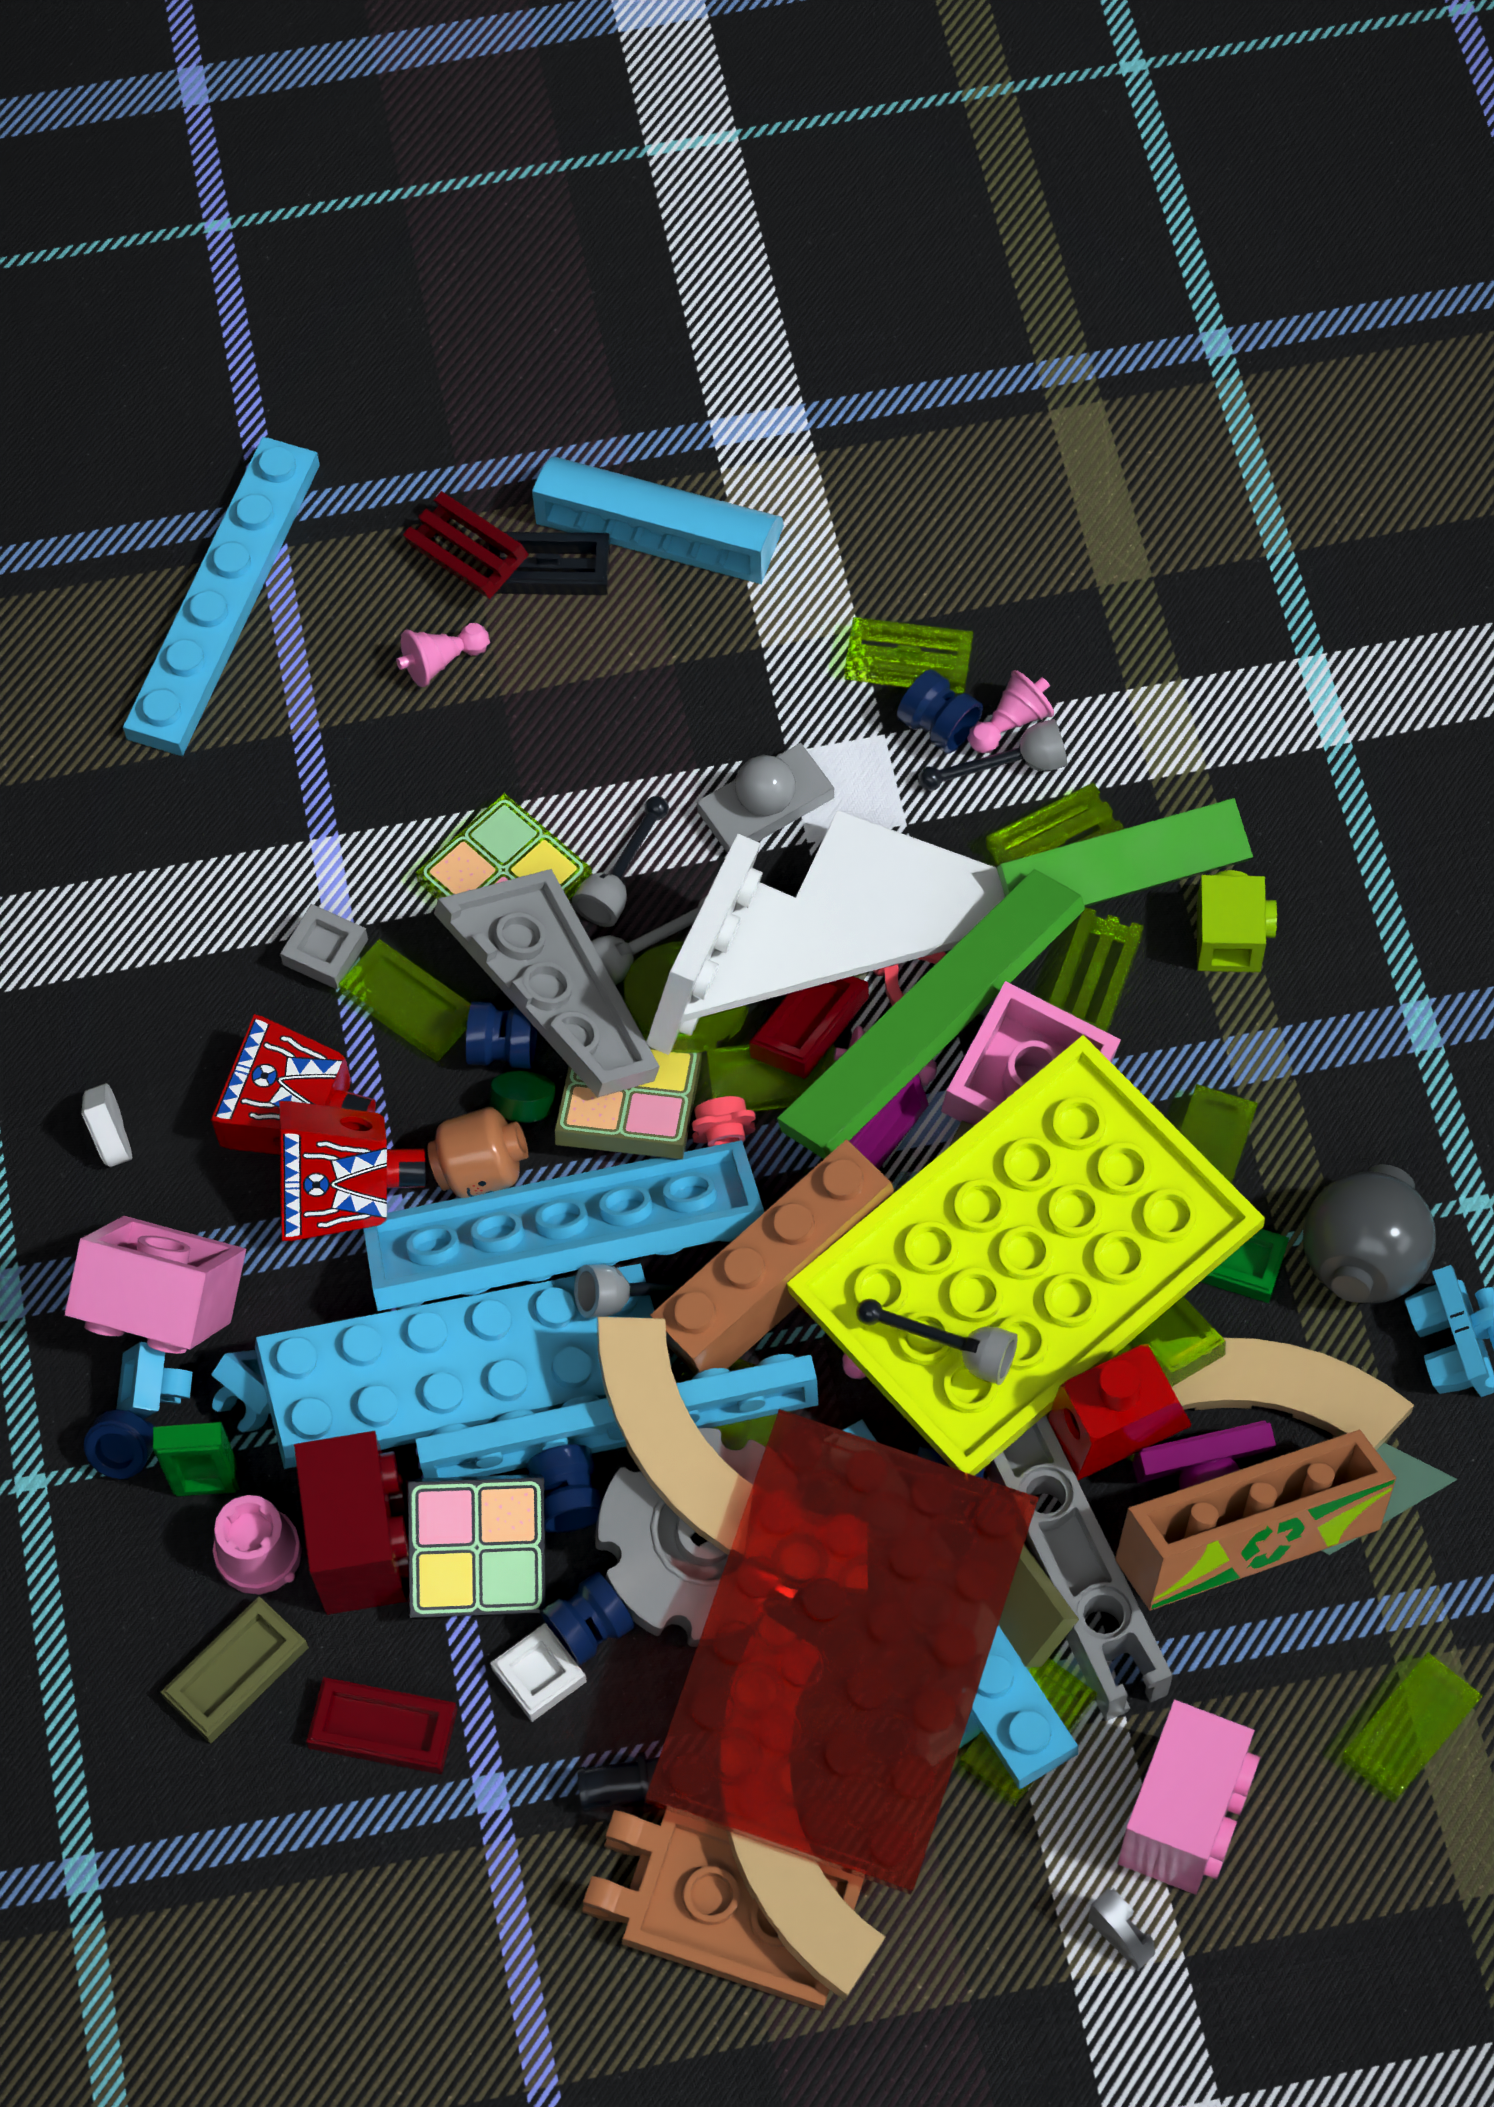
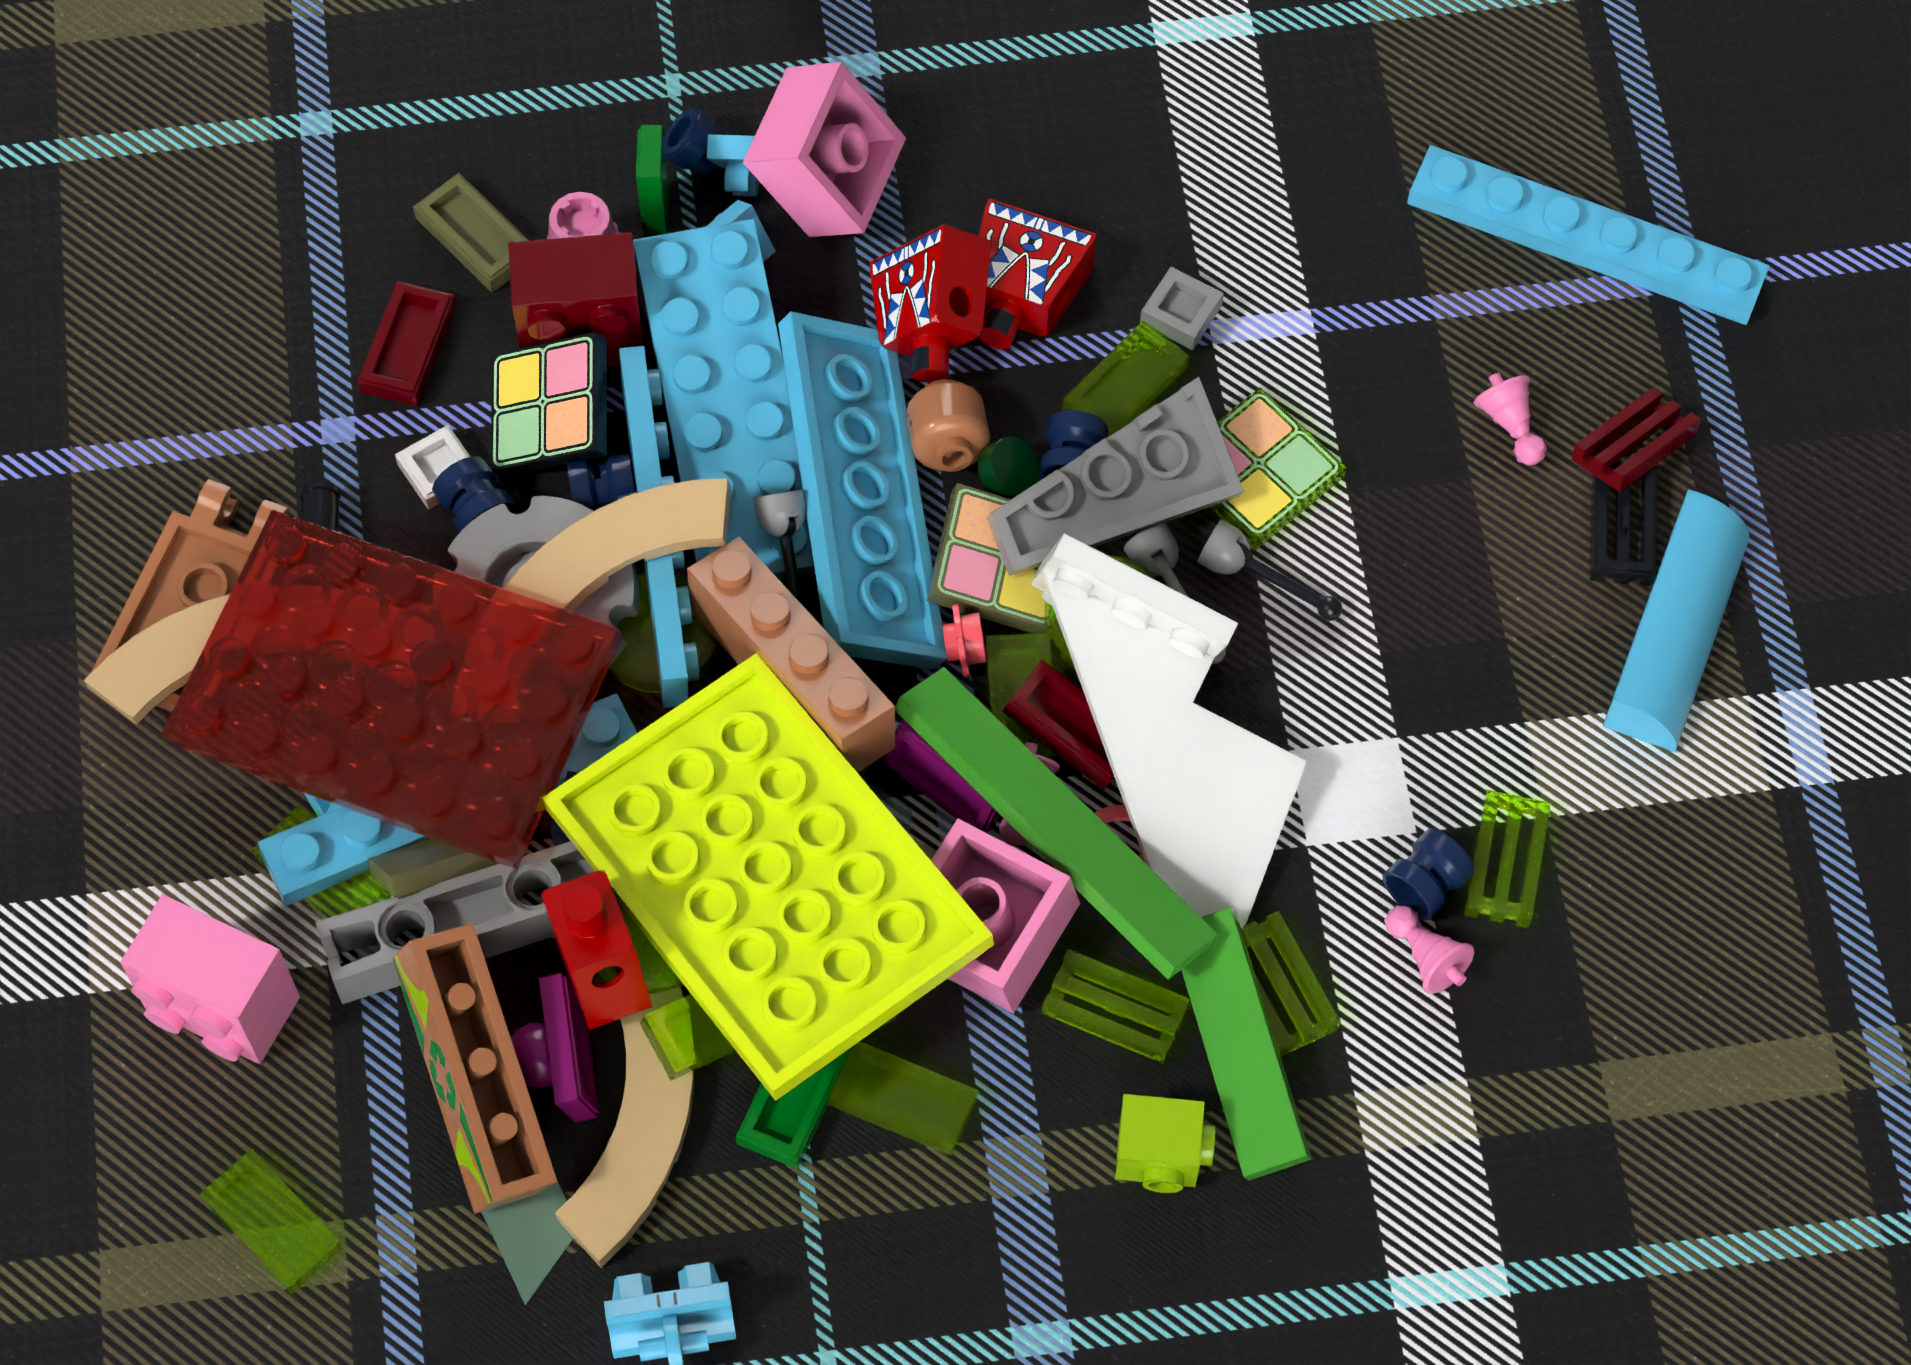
camera: 90 degrees right, 0 degrees up
(106, 1125) = (1005, 129): white tile -> none
(766, 796) = (1336, 708): light grey tile -> none
(985, 1351) = (653, 812): hinge -> none
(1039, 749) = (1384, 975): hinge -> none
(1110, 1918) = (113, 928): flat silver tile -> none
(1370, 1235) = (774, 1225): dark grey brick -> none

